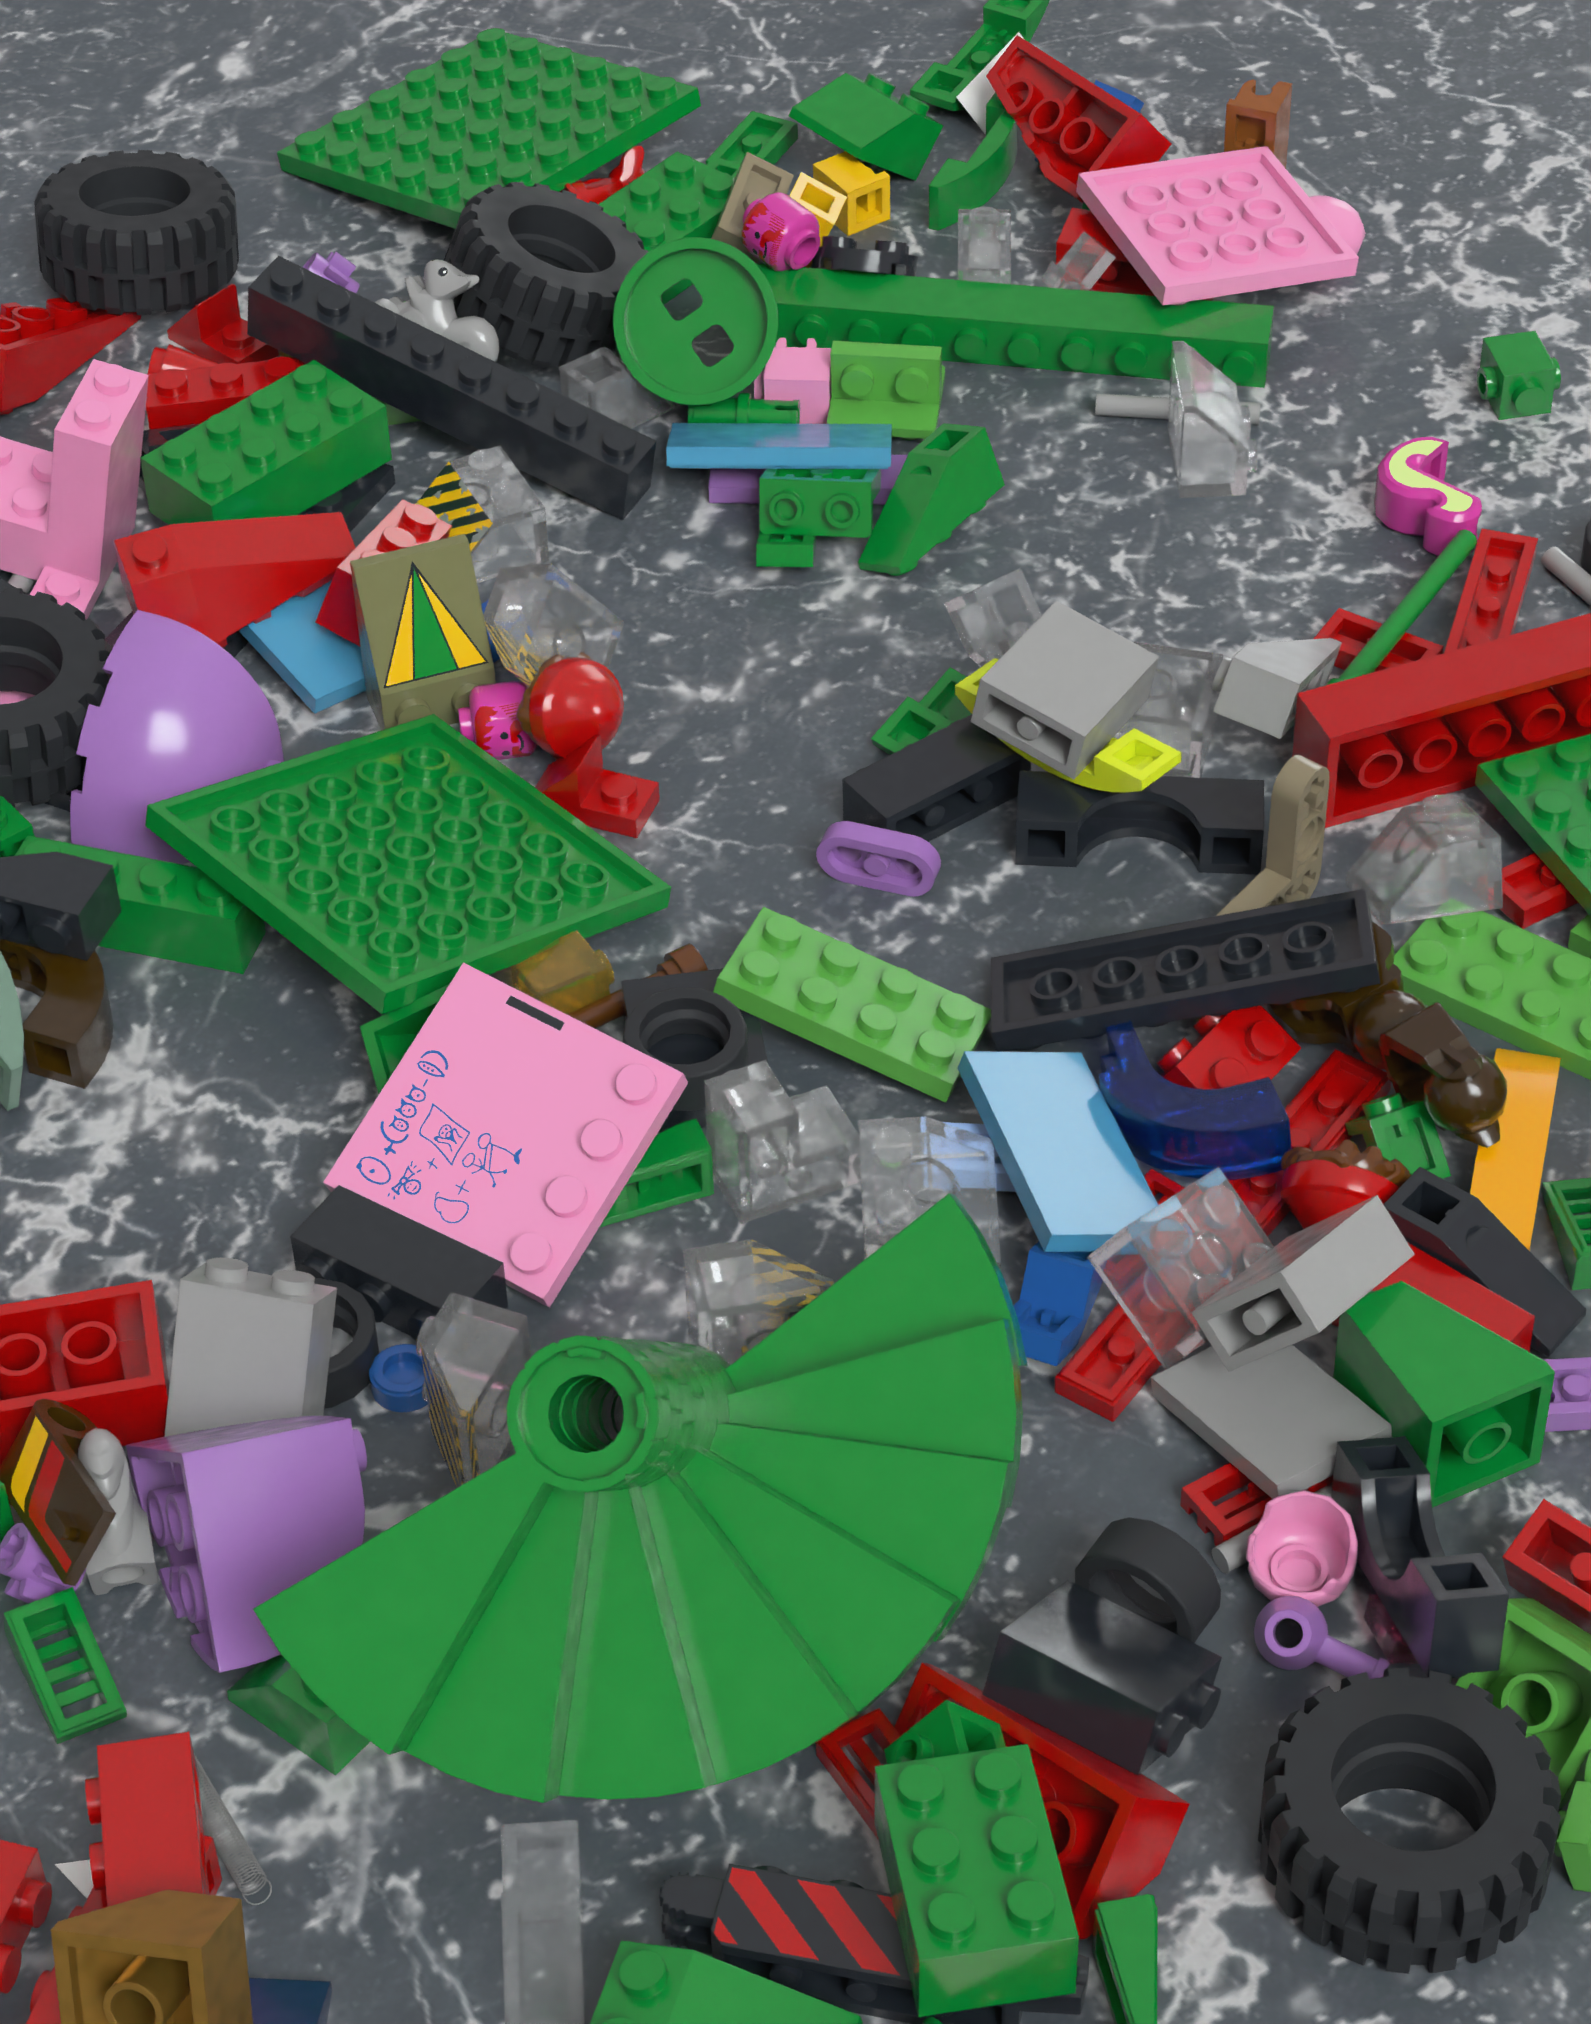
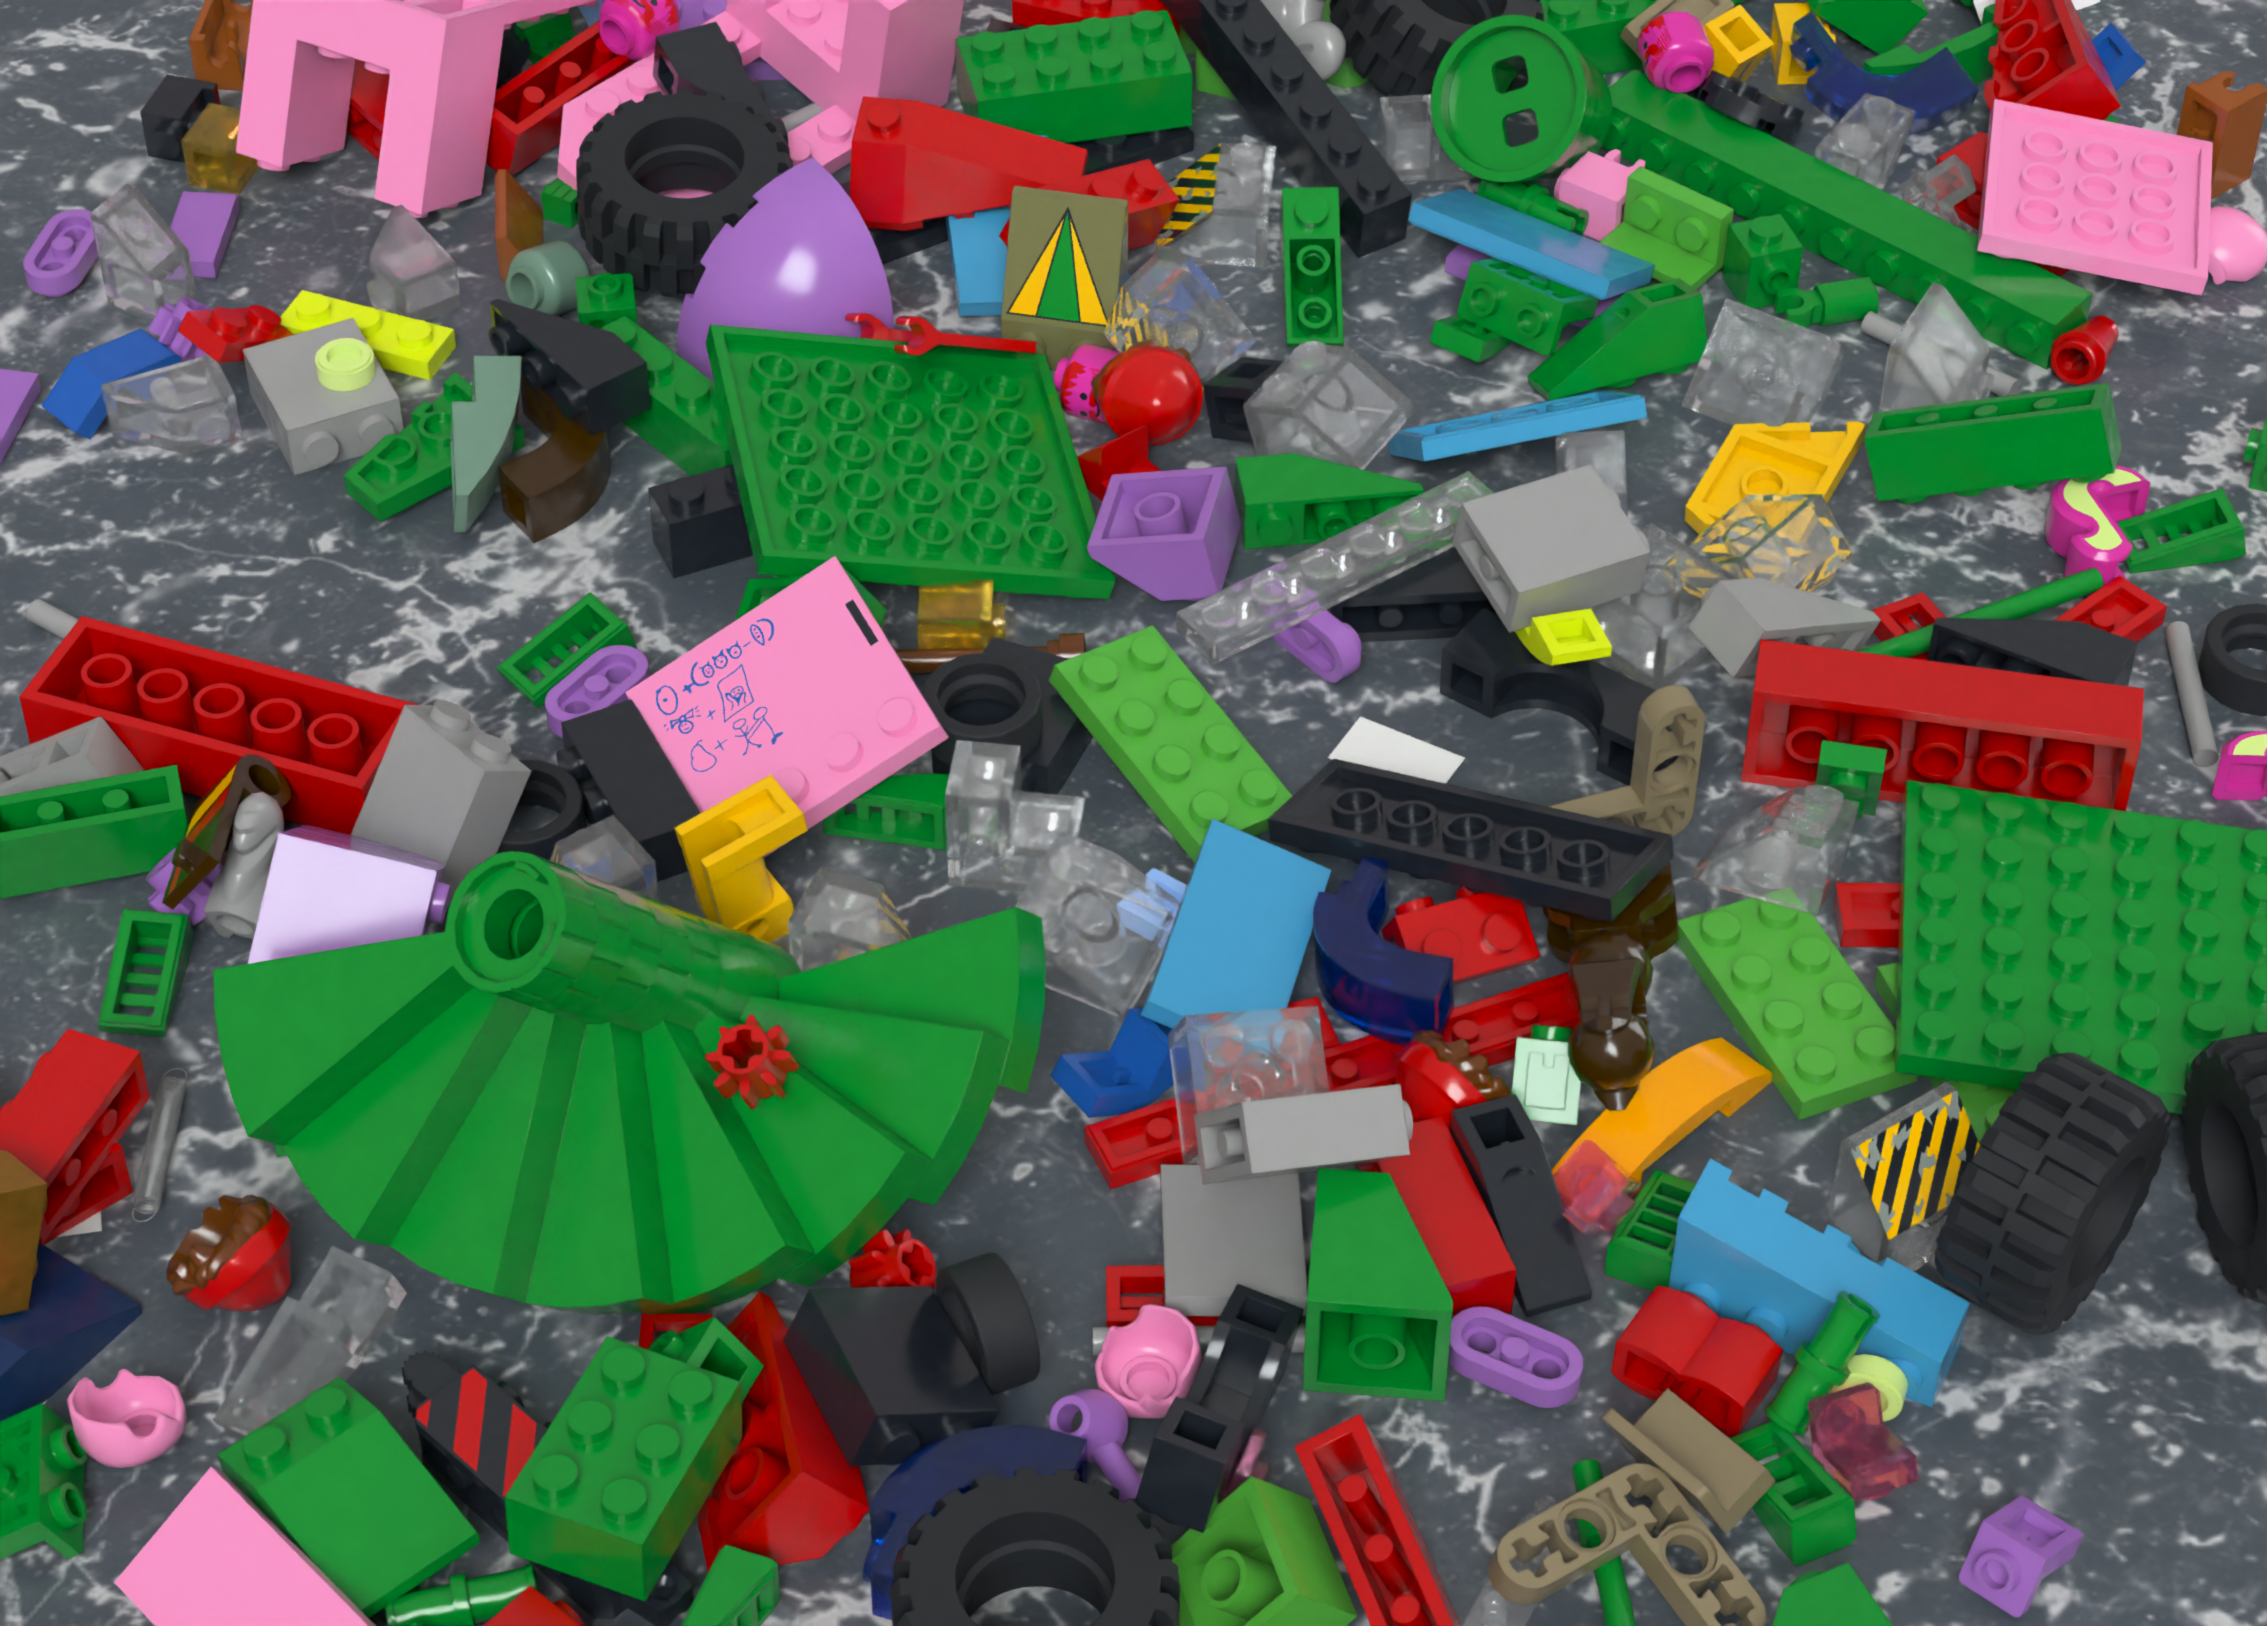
camera: 30 degrees right, 0 degrees up
(215, 1129) = (572, 628): none -> green slope
(255, 992) = (699, 521): none -> black brick
(272, 1203) = (595, 684): none -> medium lavender plate
(345, 732) = (925, 336): none -> red flag
(398, 1883) = (235, 1257): none -> hair
(576, 1267) = (727, 861): none -> yellow piece
(603, 541) = (1311, 265): none -> green slope
(651, 677) = (1230, 391): none -> black brick
(687, 820) = (1168, 531): none -> medium lavender slope
(733, 661) = (1326, 407): none -> clear slope
(781, 743) = (1309, 499): none -> green slope
(822, 1431) = (751, 1061): none -> red gear
(873, 791) = (1327, 572): none -> clear plate
(902, 606) = (1516, 425): none -> dark azure tile
(930, 215) = (1934, 89): none -> clear blue arch
(981, 385) = (1761, 260): none -> green brick
(1013, 1584) = (893, 1262): none -> red gear
(1023, 931) = (1394, 751): none -> white sticker
(1056, 400) = (1828, 302): none -> green bar
(1061, 479) = (1762, 369): none -> clear slope
(1151, 575) = (1772, 461): none -> yellow wing
(1208, 608) = (1777, 539): none -> clear slope
(1231, 1748) = (952, 1465): none -> clear blue arch
(1292, 358) = (2084, 350): none -> red cone
(1315, 457) = (1993, 443): none -> green brick
(1436, 773) = (1854, 772): none -> green plate
(1491, 612) = (2034, 647): none -> black slope
(1500, 448) = (2213, 527): none -> green slope
(1540, 1218) = (1594, 1189): none -> clear pink bracket

